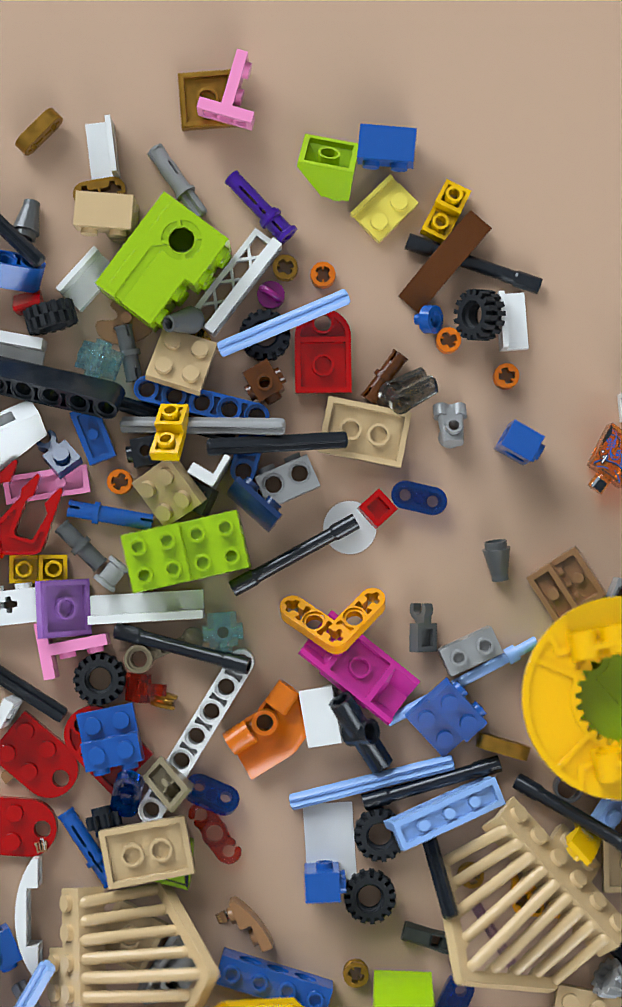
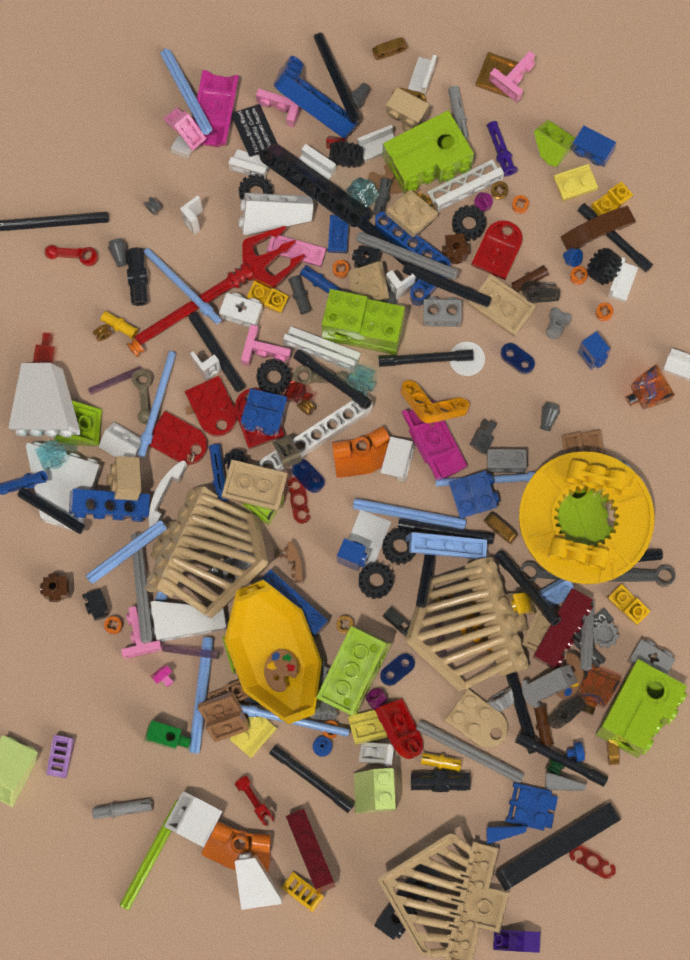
camera: 30 degrees right, 10 degrees down
(59, 456) = (312, 237): plate -> none
(63, 608) = (272, 323): medium lavender plate -> none
(111, 573) = (310, 319): light grey bush -> none
(127, 793) = (258, 446): clear blue plate -> none
(170, 432) = (386, 249): yellow slope -> none
(186, 320) = (425, 191): dark grey cone -> none
(261, 510) = (416, 315): dark blue slope -> none
(283, 323) = (483, 218): light blue axle -> none
(360, 732) = (417, 477): black piece -> none
(377, 508) = (489, 353): red plate -> none

